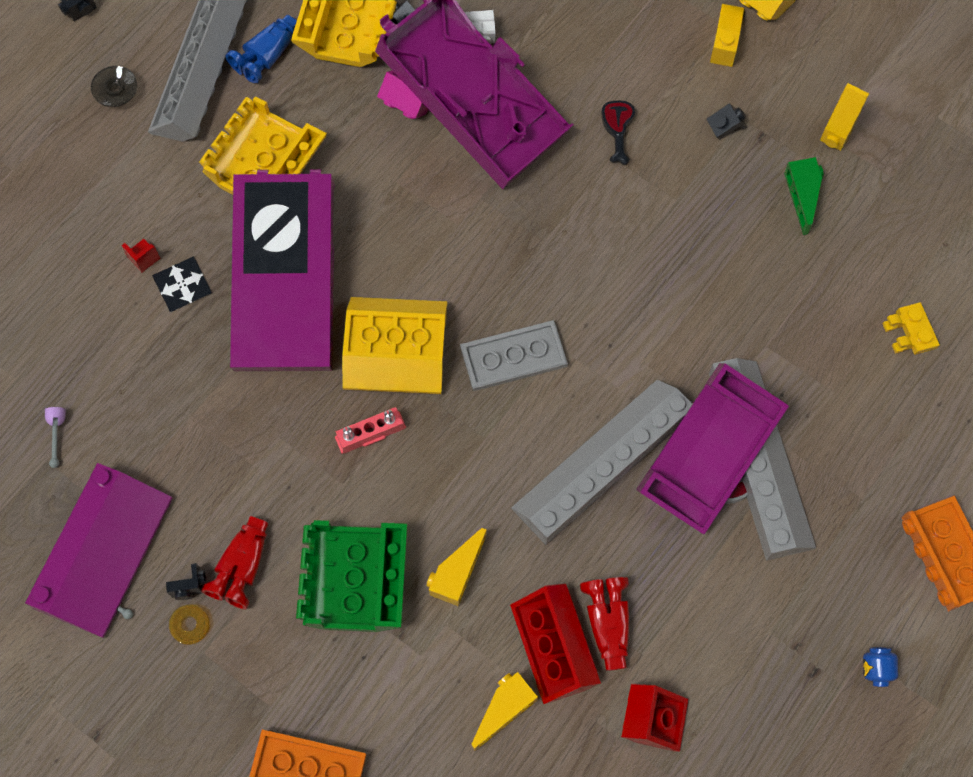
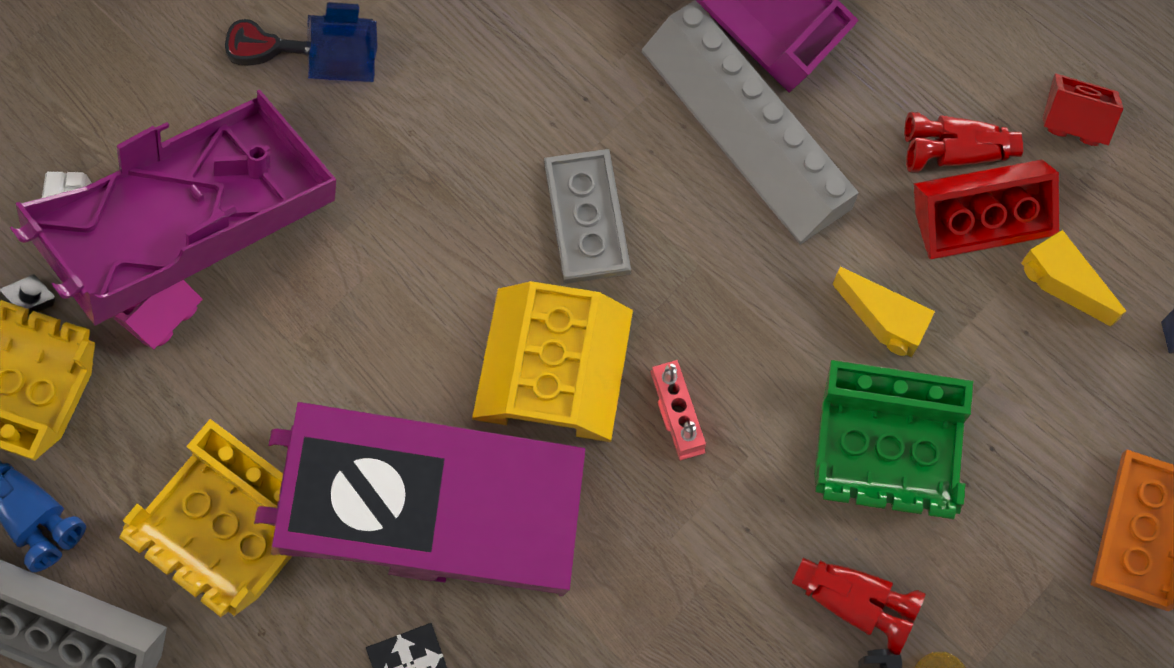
camera: 85 degrees left, 0 degrees up
(621, 172) = (341, 44): none -> clear blue panel

